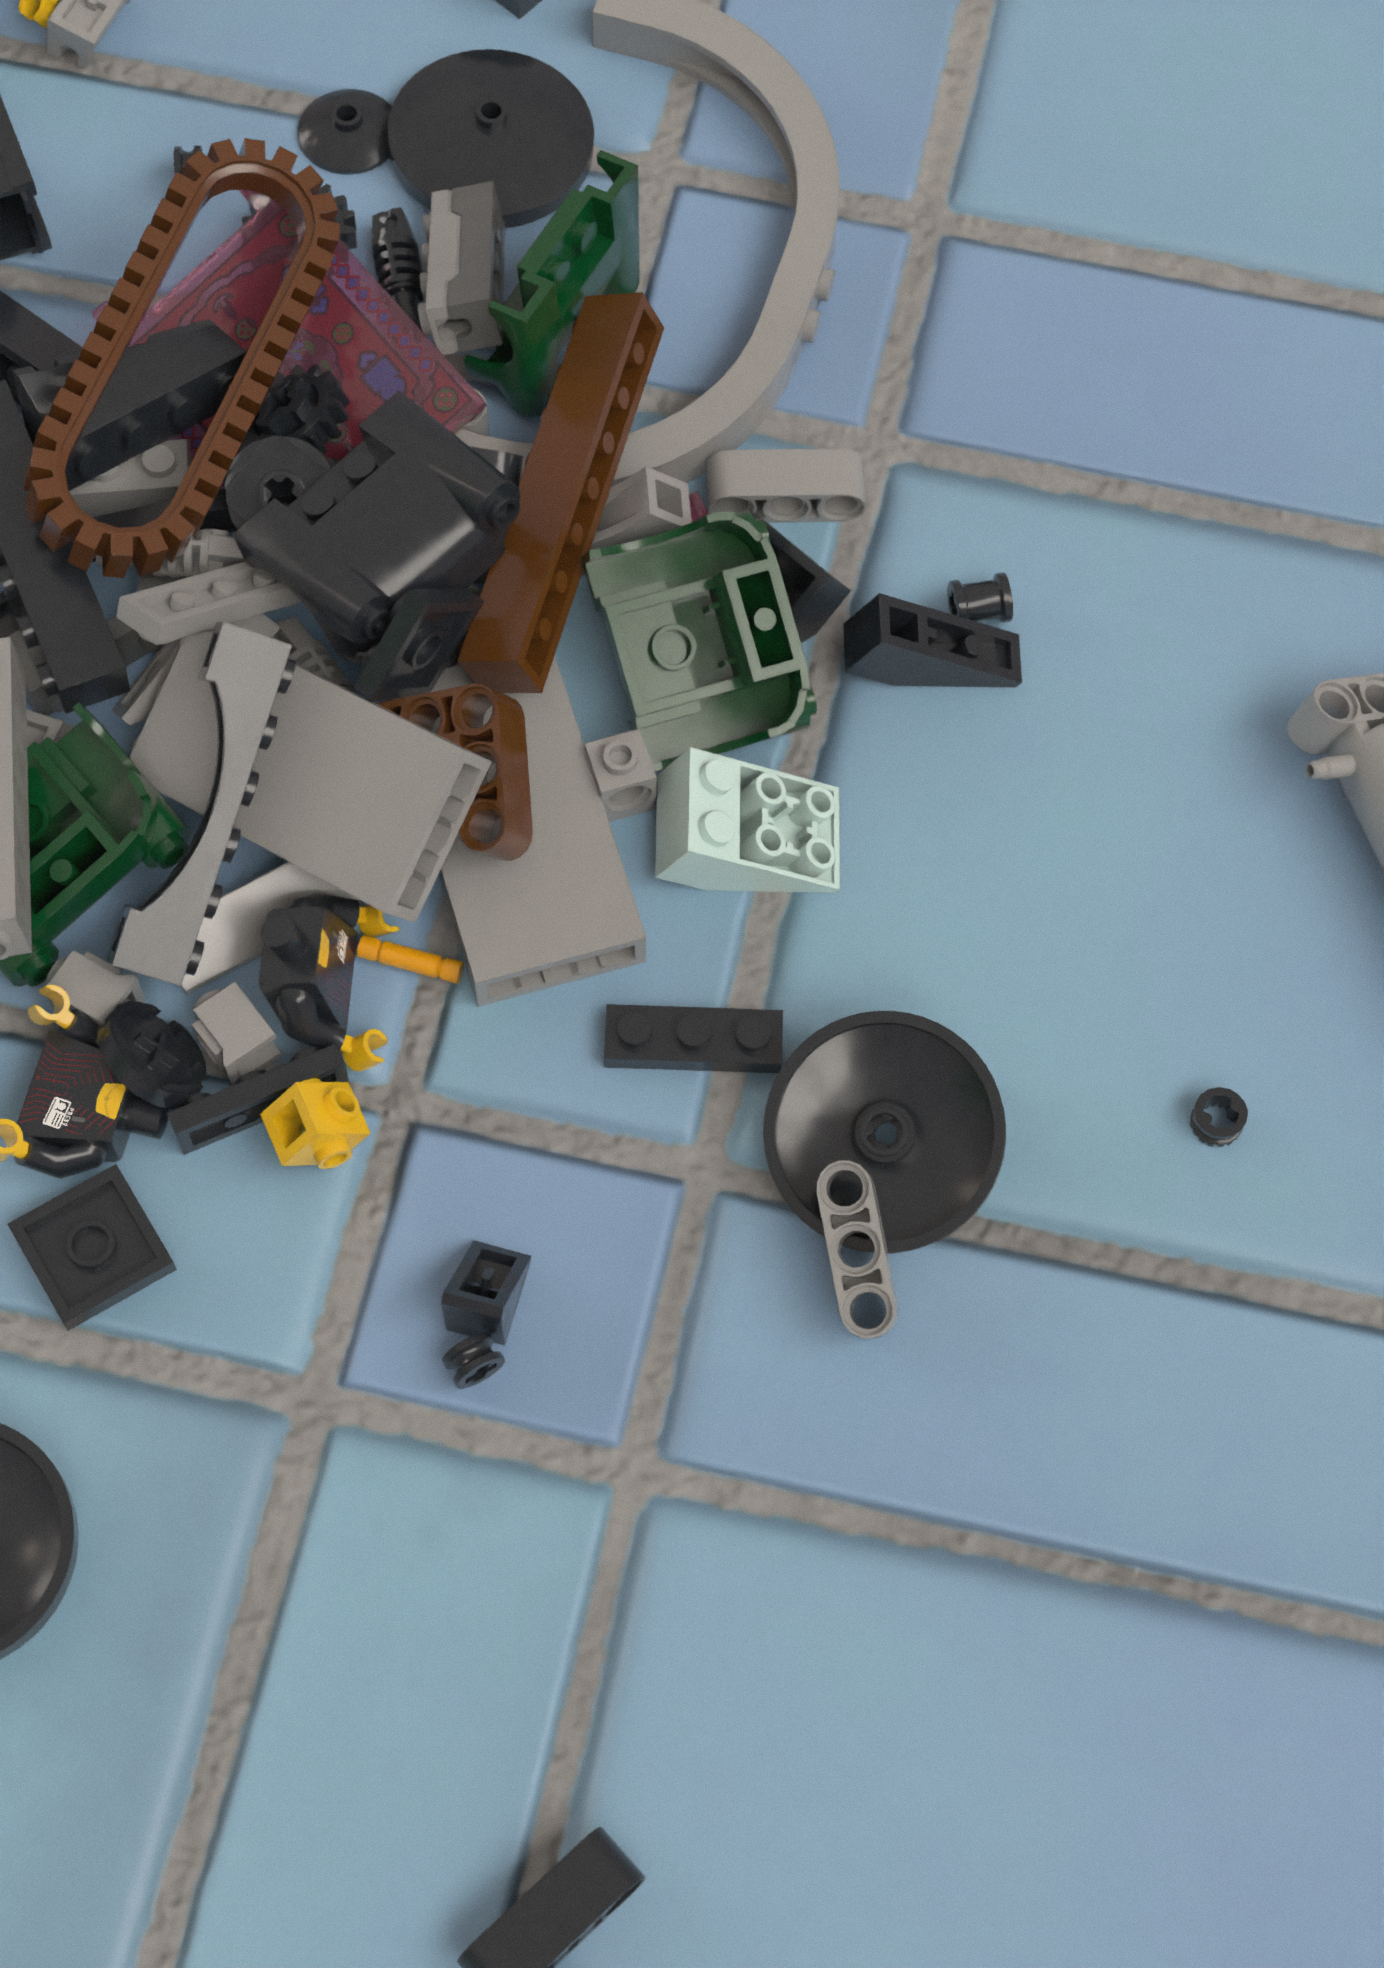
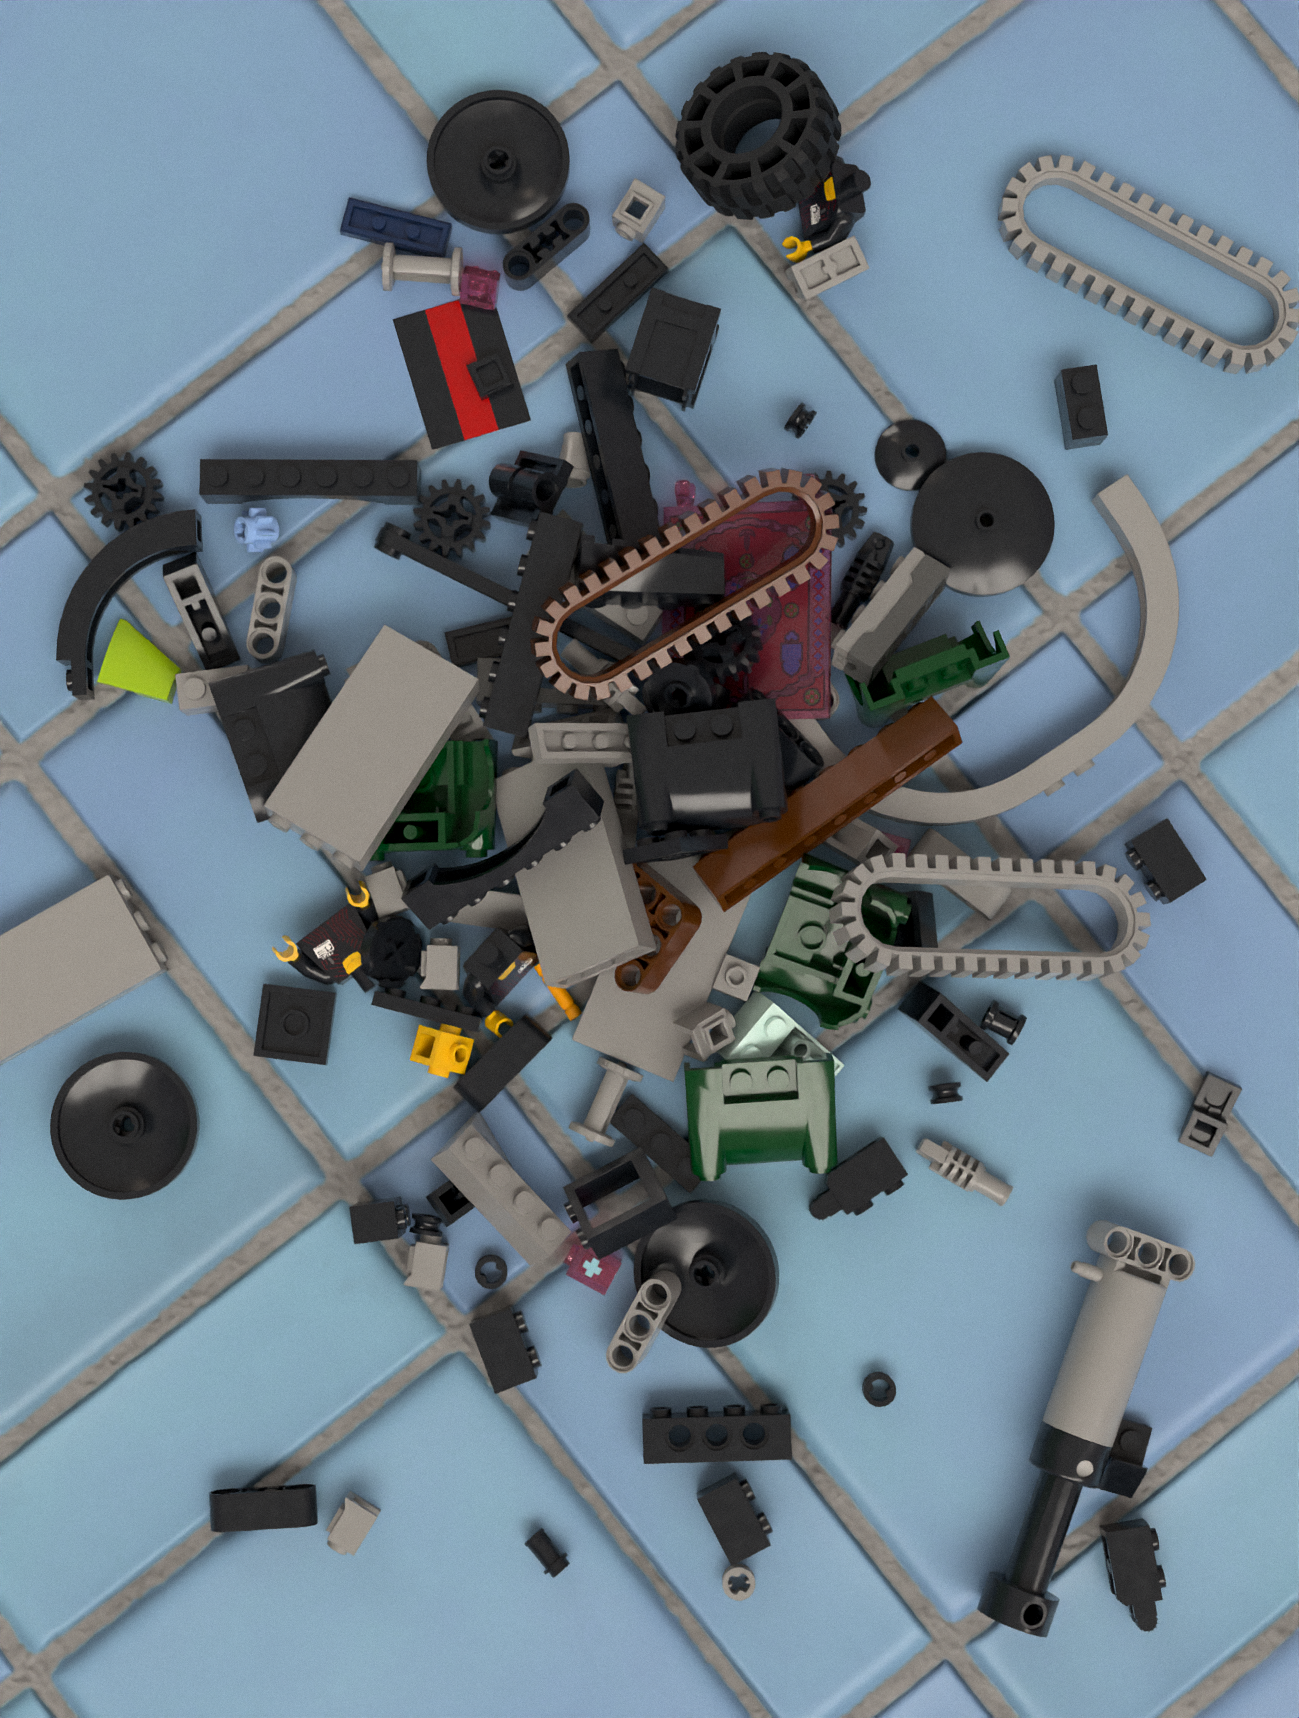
camera: 40 degrees right, 20 degrees up
(402, 1388) = (379, 1220): none -> black brick
(409, 1089) = (503, 1062): none -> black beam
(514, 1406) = (427, 1263): none -> light grey window
(540, 1234) = (487, 1179): none -> light grey wedge
(593, 1073) = (605, 1102): none -> light grey hose
(603, 1376) = (500, 1265): none -> black bush
(642, 829) = (697, 1025): none -> light grey window
(694, 1838) = (351, 1524): none -> light grey window
(707, 1433) = (505, 1348): none -> black brick
(734, 1242) = (591, 1271): none -> clear pink brick
(750, 1102) = (628, 1225): none -> black window
(787, 883) = (761, 1114): none -> piece
(880, 519) = (985, 962): none -> light grey piece
(972, 891) = (859, 1180): none -> black hinge
(985, 722) = (945, 1093): none -> black bush
(990, 1658) = (547, 1553): none -> black pin
(1003, 313) = (1164, 862): none -> black brick
(1013, 1396) = (772, 1445): none -> black brick
(1083, 792) = (963, 1170): none -> light grey hinge
(1188, 1410) = (734, 1518): none -> black brick
(1278, 1476) = (741, 1593): none -> light grey bush
(1298, 530) = (1209, 1113): none -> slope

